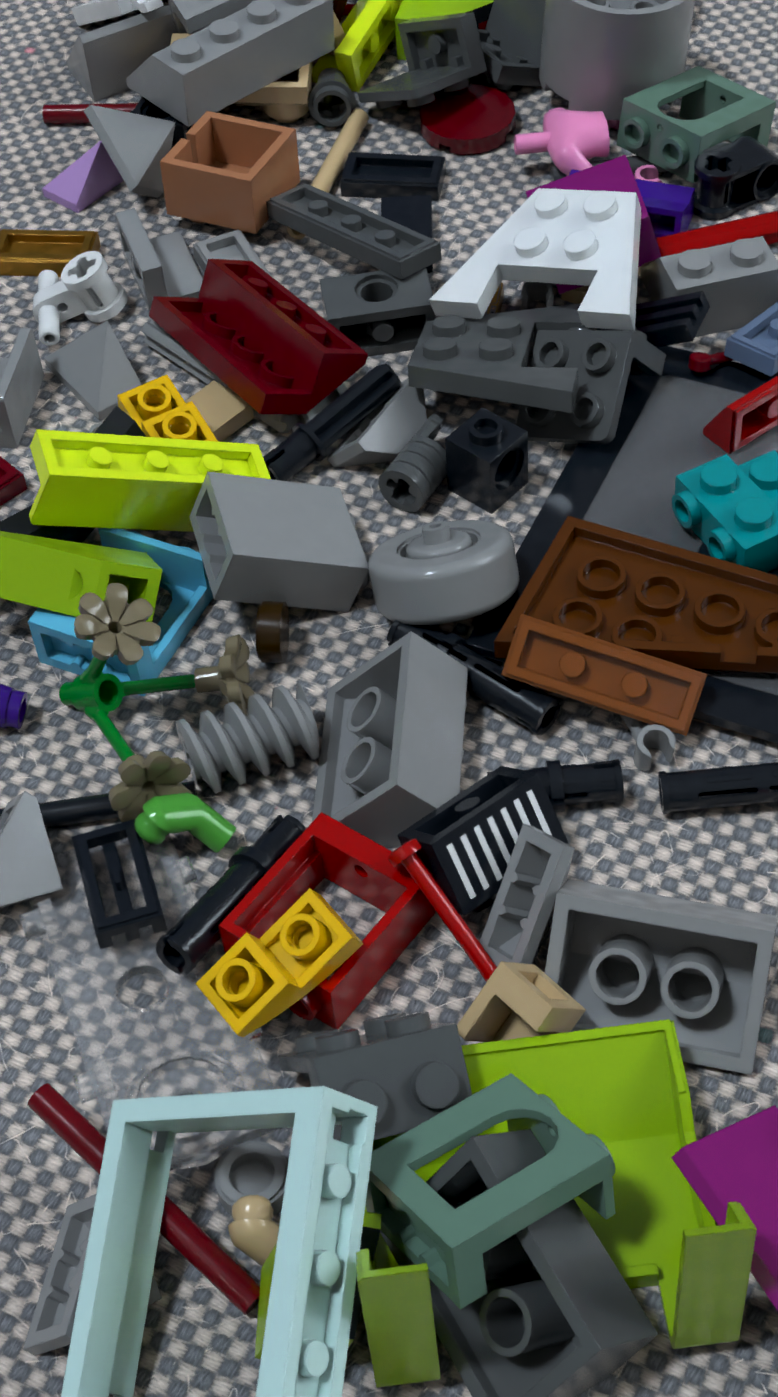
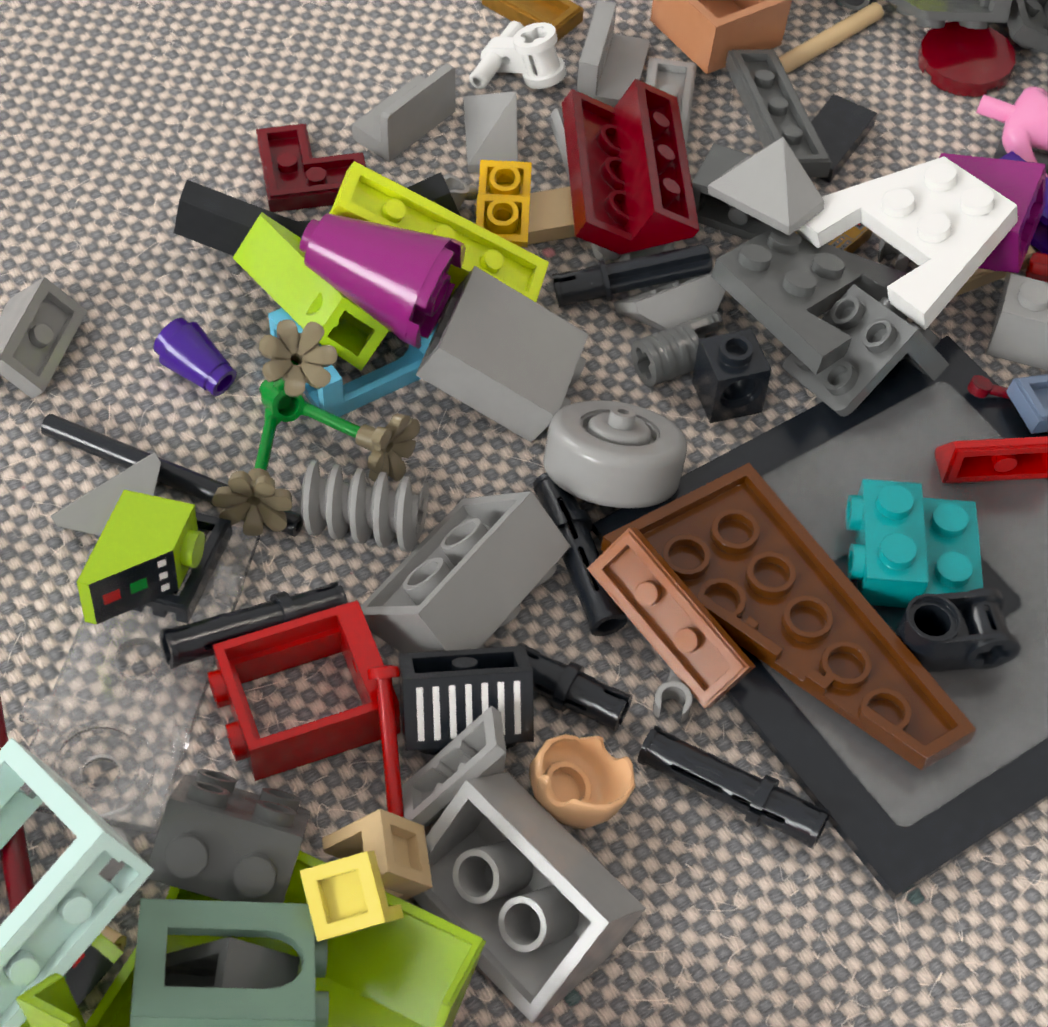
camera: 25 degrees right, 5 degrees up
(90, 882) = (139, 555): none -> lime slope
(131, 514) = (385, 270): none -> magenta cone
(179, 814) = (264, 537): bright green arm -> none
(272, 632) = (450, 427): dark brown tile -> none
(272, 973) = (219, 707): yellow slope -> none
(392, 175) = (862, 79): black tile -> none
(406, 285) = (770, 188): none -> light grey slope
(540, 1043) = (347, 896): none -> light yellow panel
(636, 850) = (580, 780): none -> light nougat hair
(671, 319) = (974, 332): black tile -> none

